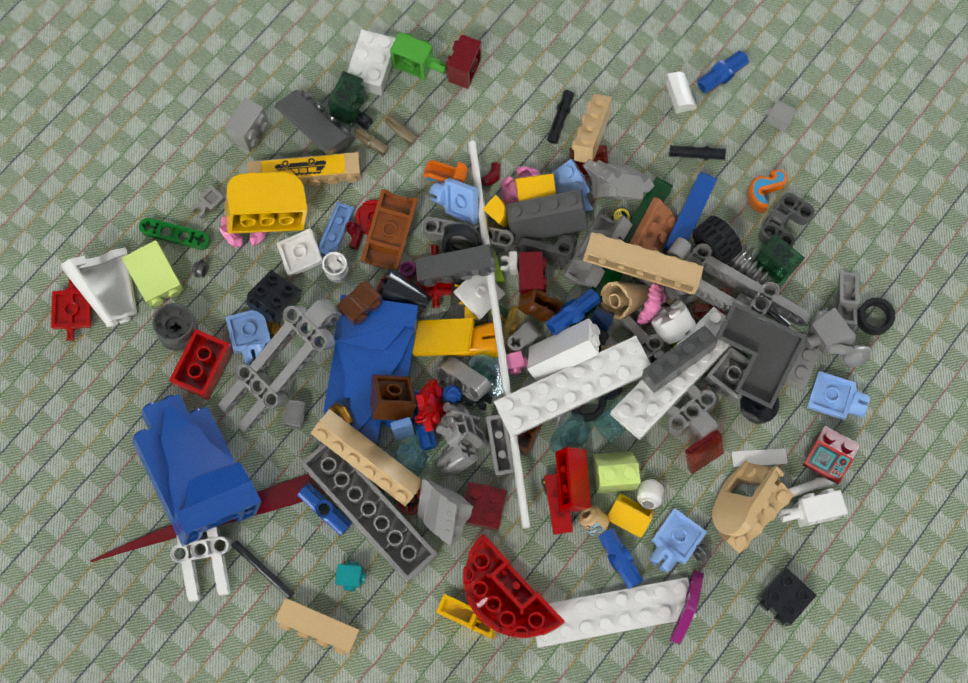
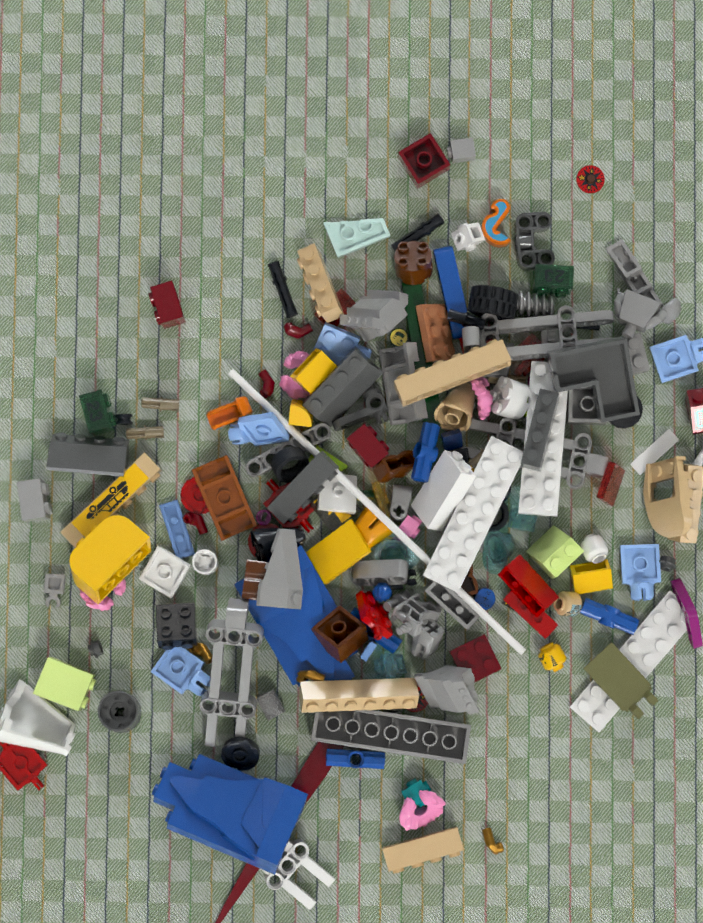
camera: 40 degrees left, 10 degrees up
(173, 237) = (48, 634): green beam -> none
(201, 364) = (165, 724): red brick -> none
(239, 432) = (240, 753): none -> black tile
(262, 569) = (345, 841): black bar -> none
(338, 598) = (415, 818): none -> bright pink piece
(372, 60) = (89, 363): white brick -> none
(376, 666) = (490, 842): none -> pearl gold arm
(380, 315) = (282, 578): none -> light grey wedge
(414, 56) = (124, 331): bright green brick -> none
(463, 615) = (530, 751): yellow slope -> none
(503, 597) = (544, 716): red brick -> none
(512, 263) = (343, 446): white tile -> none
(530, 465) = (485, 598): none -> blue piece
(545, 154) = (297, 332): none -> dark red arm
(547, 553) = (552, 656): none -> yellow head
(589, 616) = (620, 680): none -> olive tile
(648, 119) = (355, 235): none -> light aqua wing
(677, 167) = (413, 262): none -> reddish brown brick
(680, 92) = (364, 190): white brick -> none
(682, 232) = (465, 319): none -> black axle
(722, 72) = (385, 145): blue piece -> none
(735, 180) = (468, 236): none -> white brick
(744, 101) = (424, 160): none -> dark red brick
(866, 212) = (590, 179): none -> piece
(882, 304) = (675, 265): black tyre -> none

